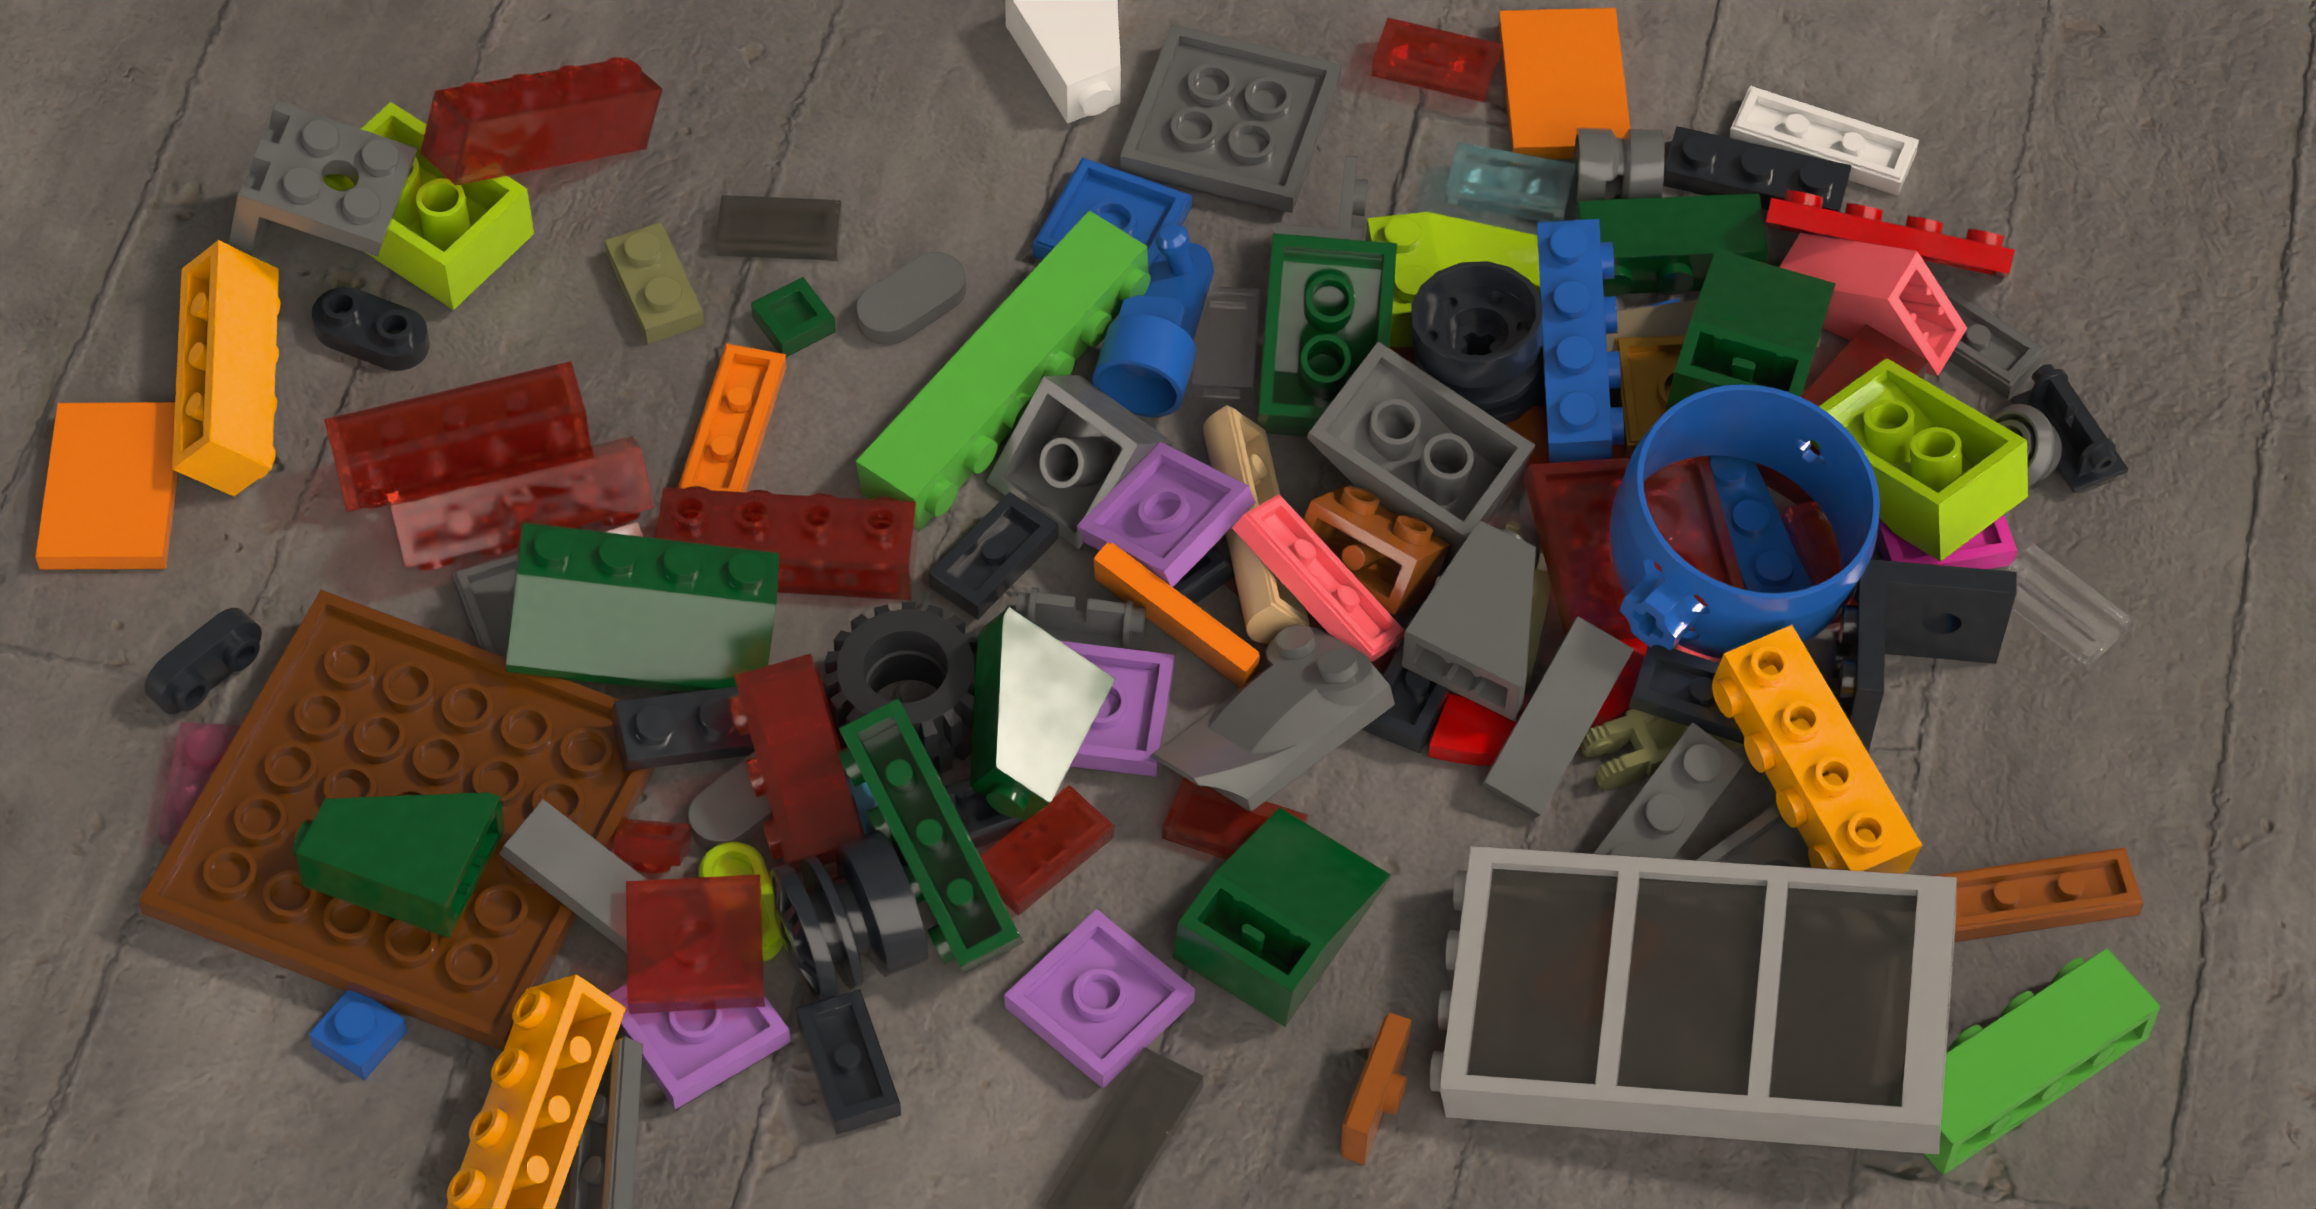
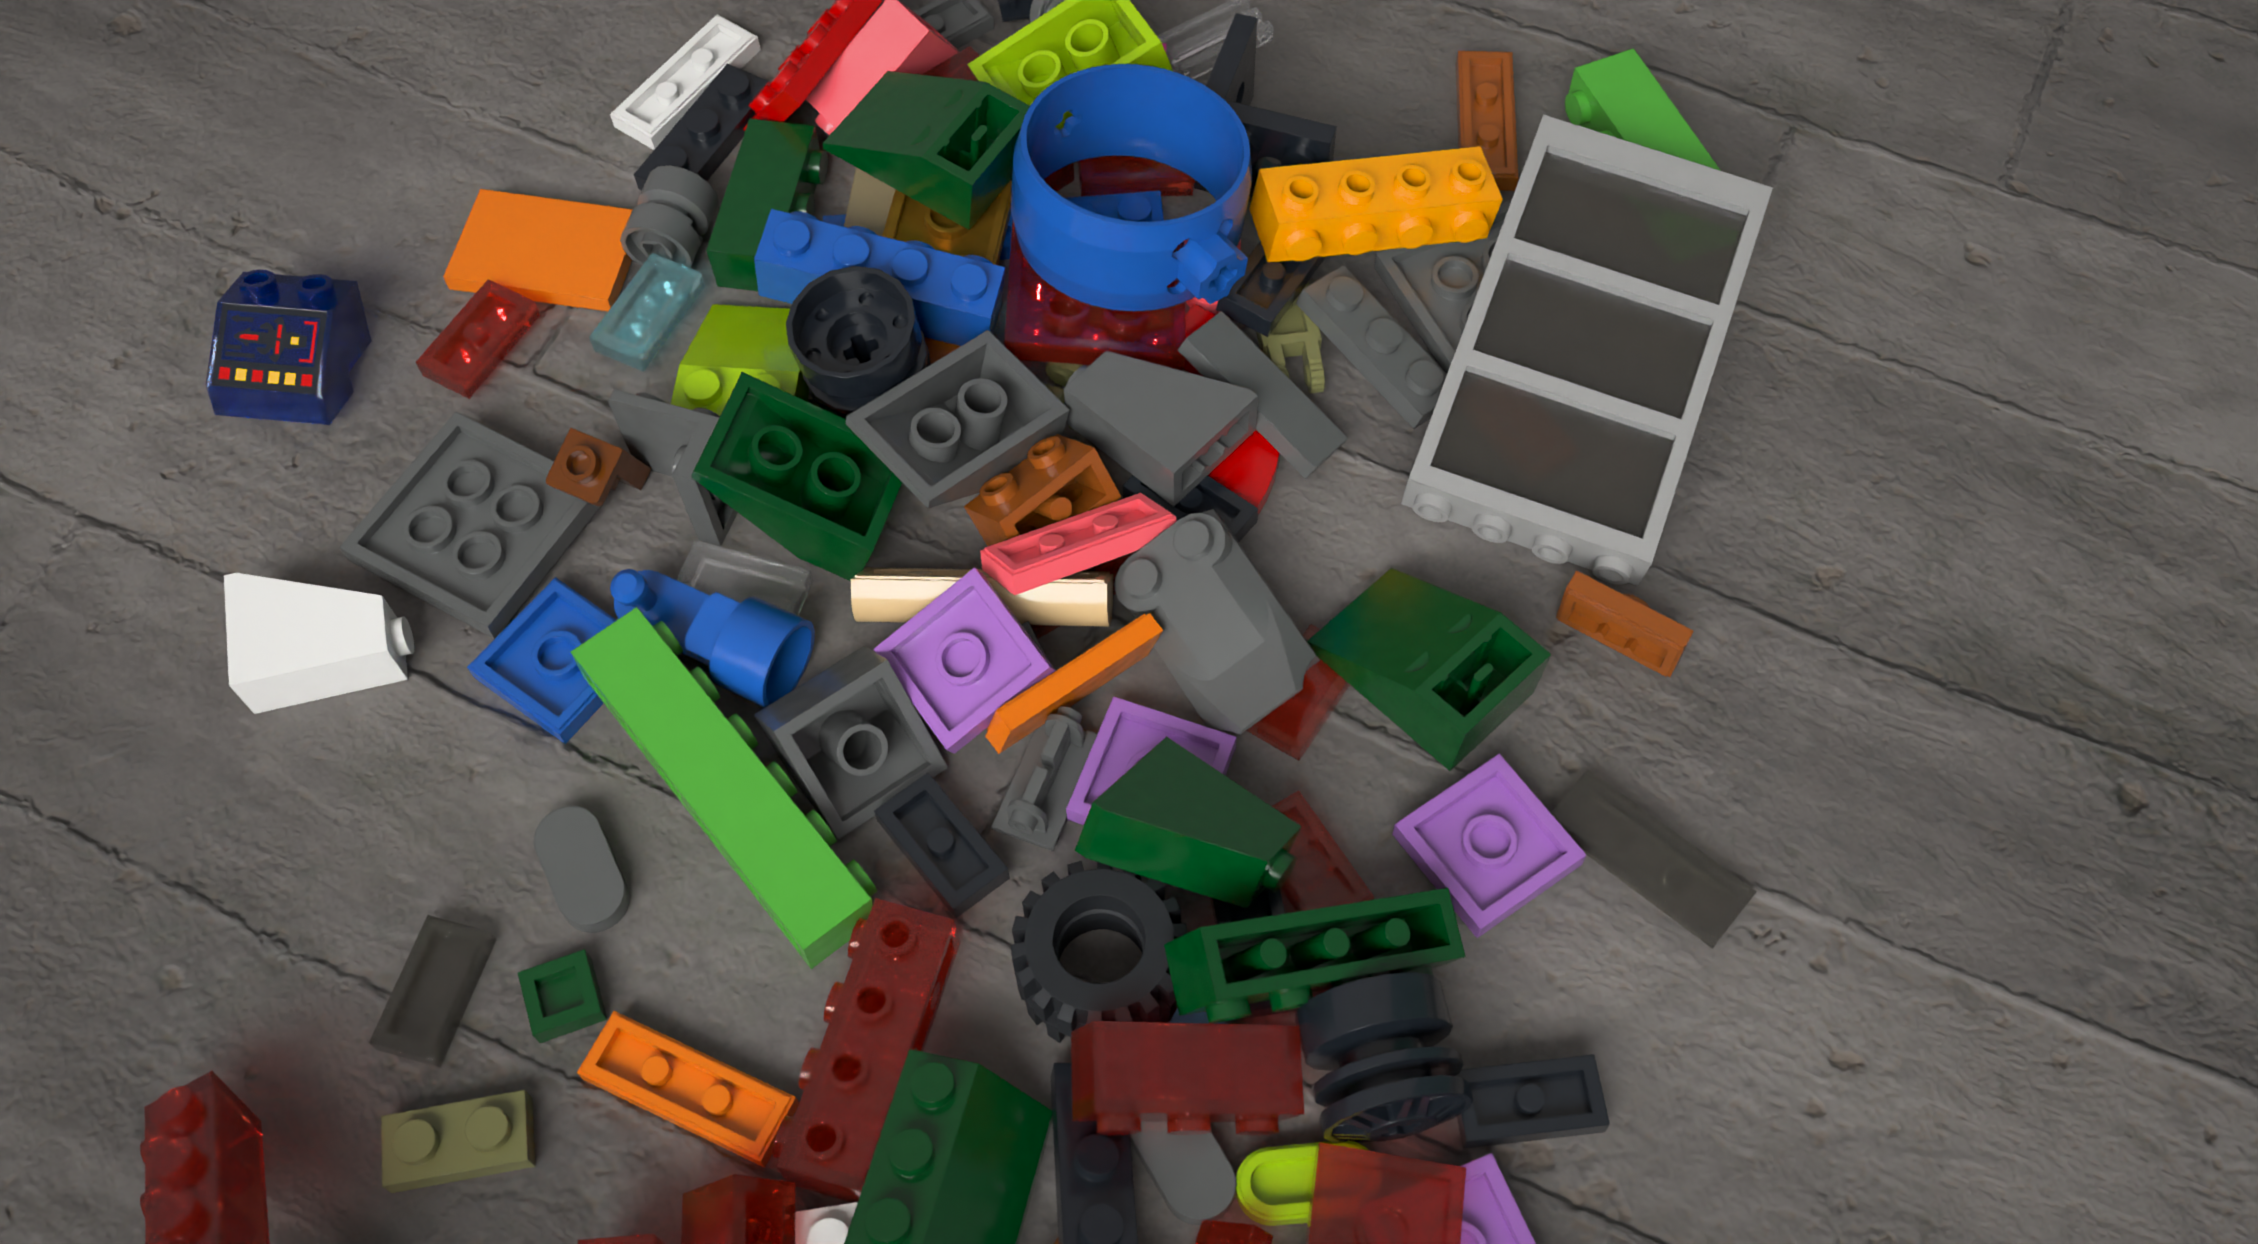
camera: 75 degrees left, 5 degrees up
(1308, 179) = (593, 467): none -> reddish brown bracket

